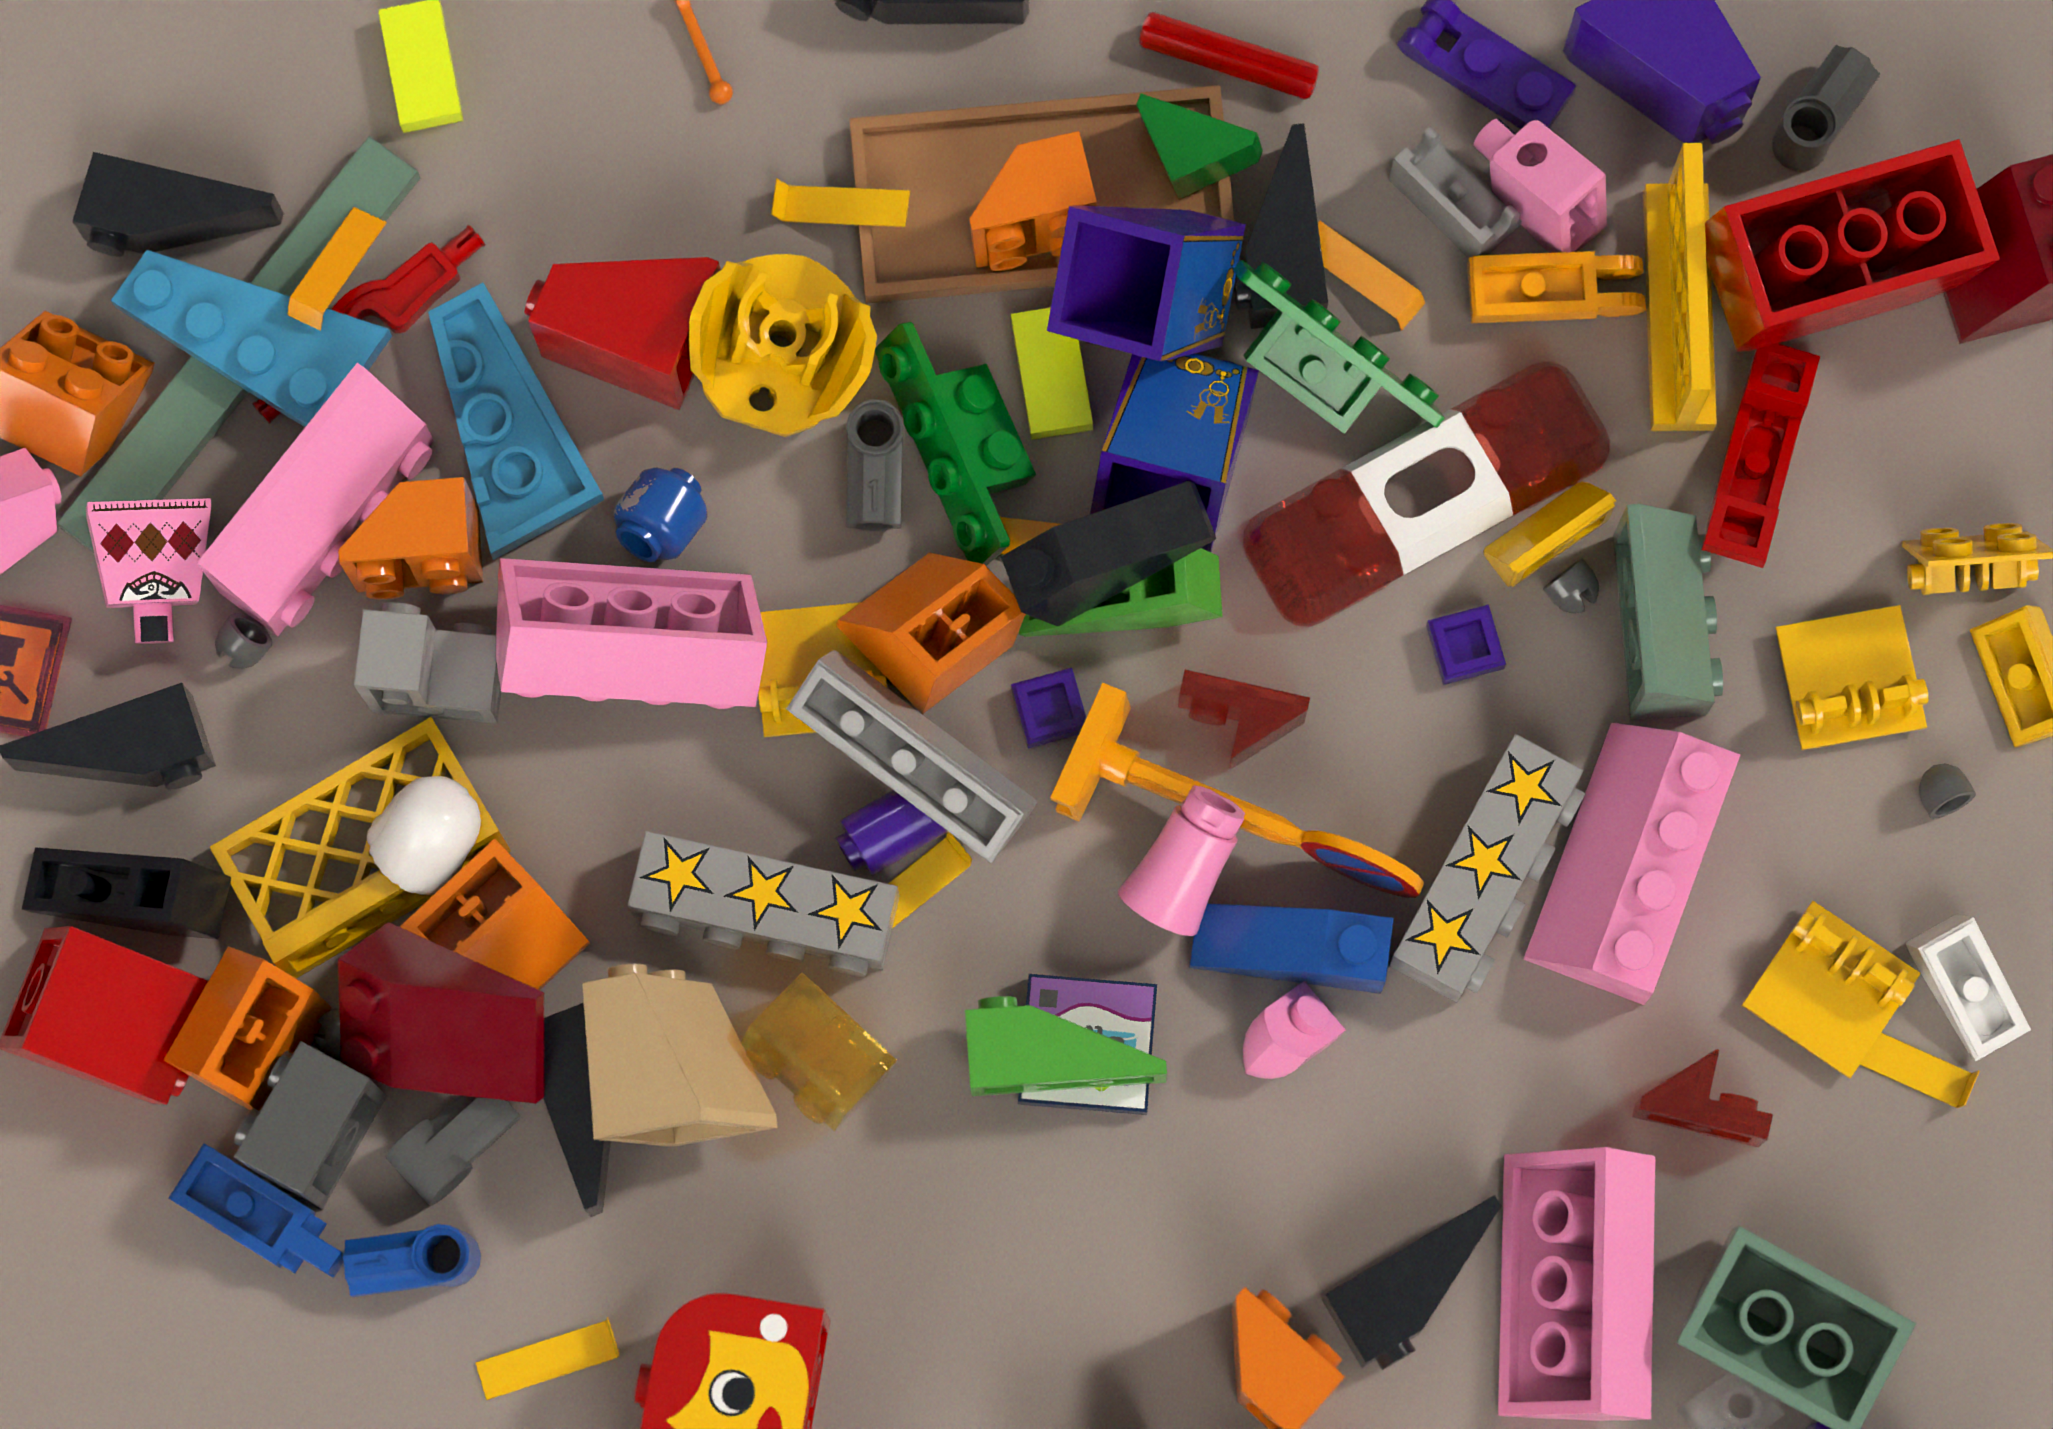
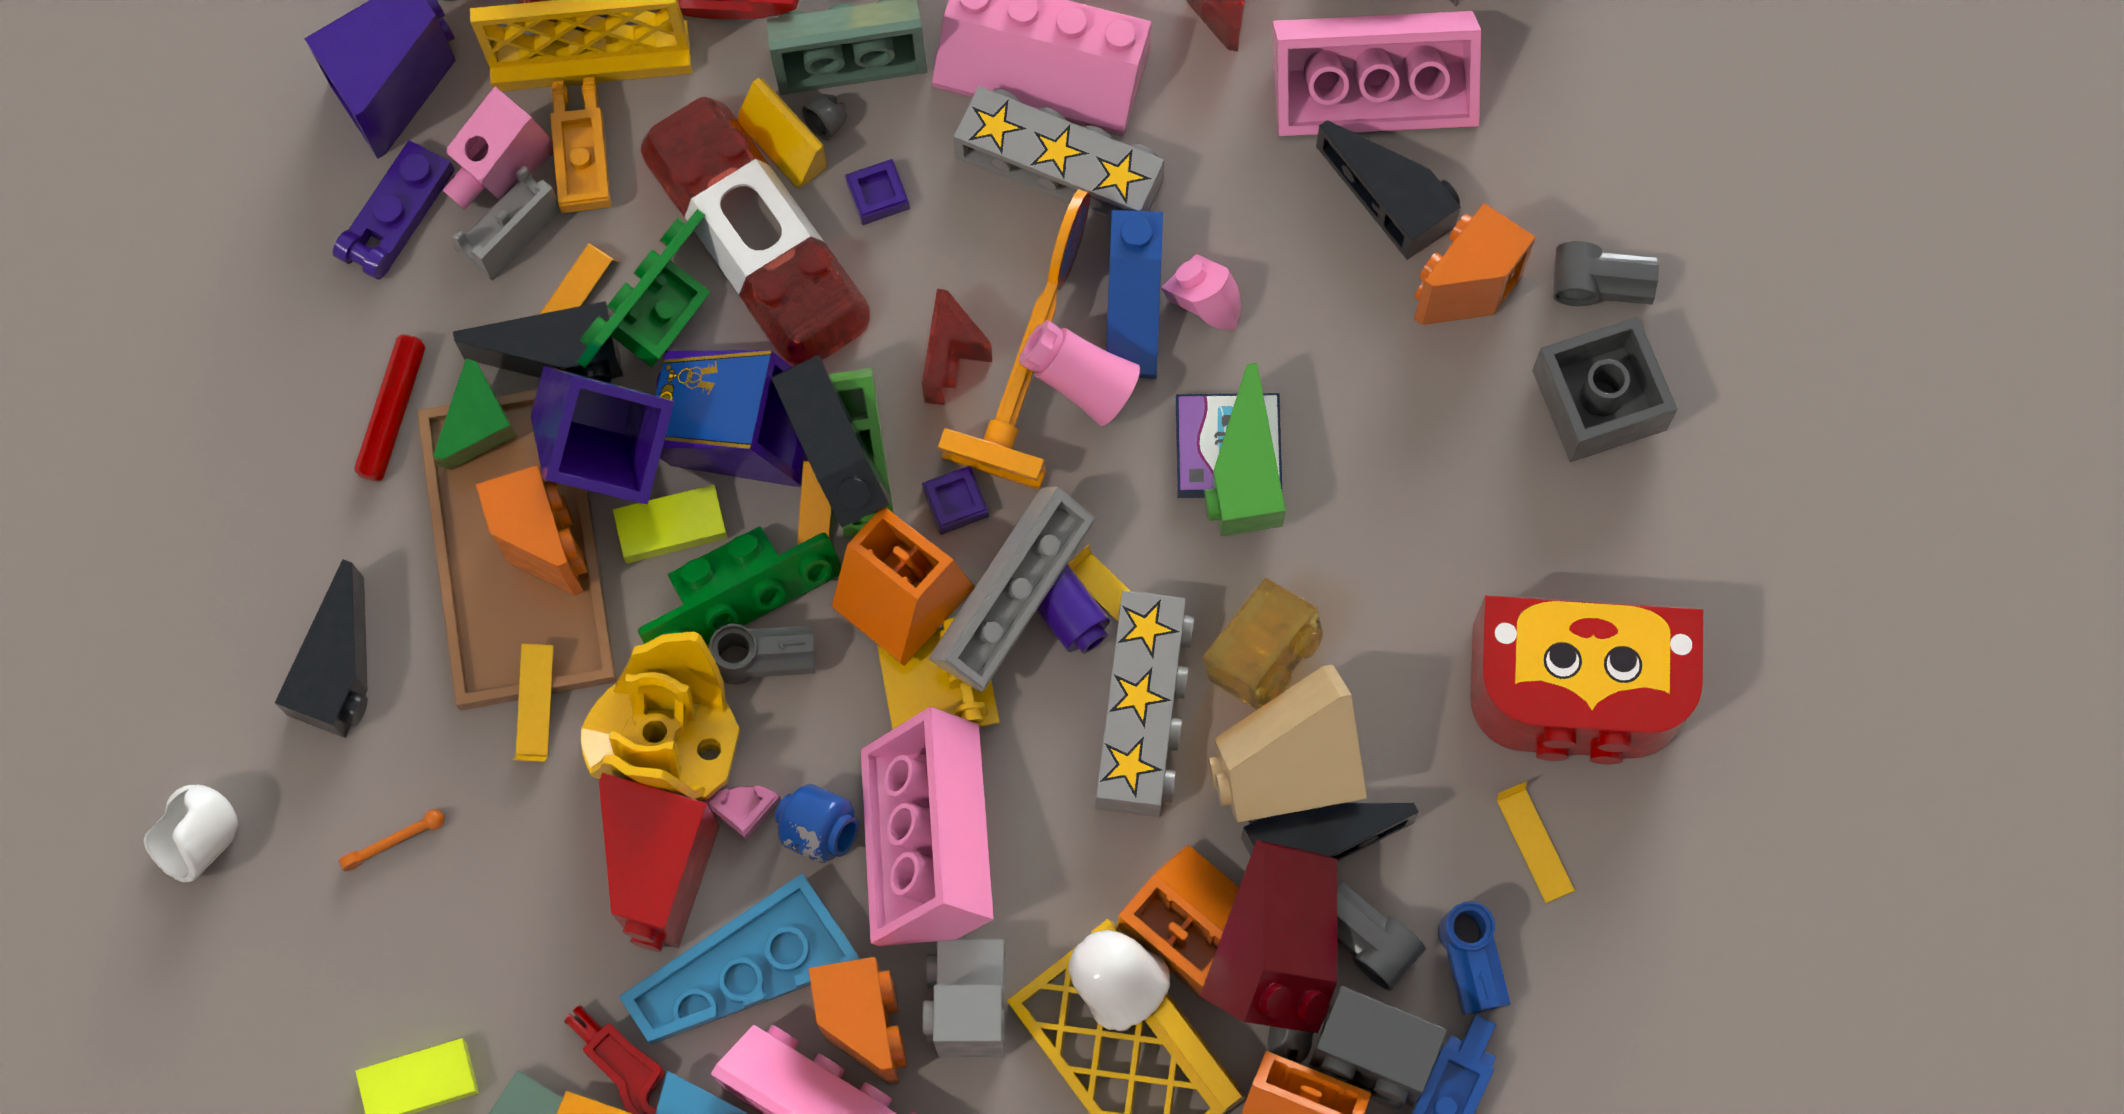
camera: 95 degrees left, 5 degrees down
(694, 436) = (743, 807): none -> bright pink tile

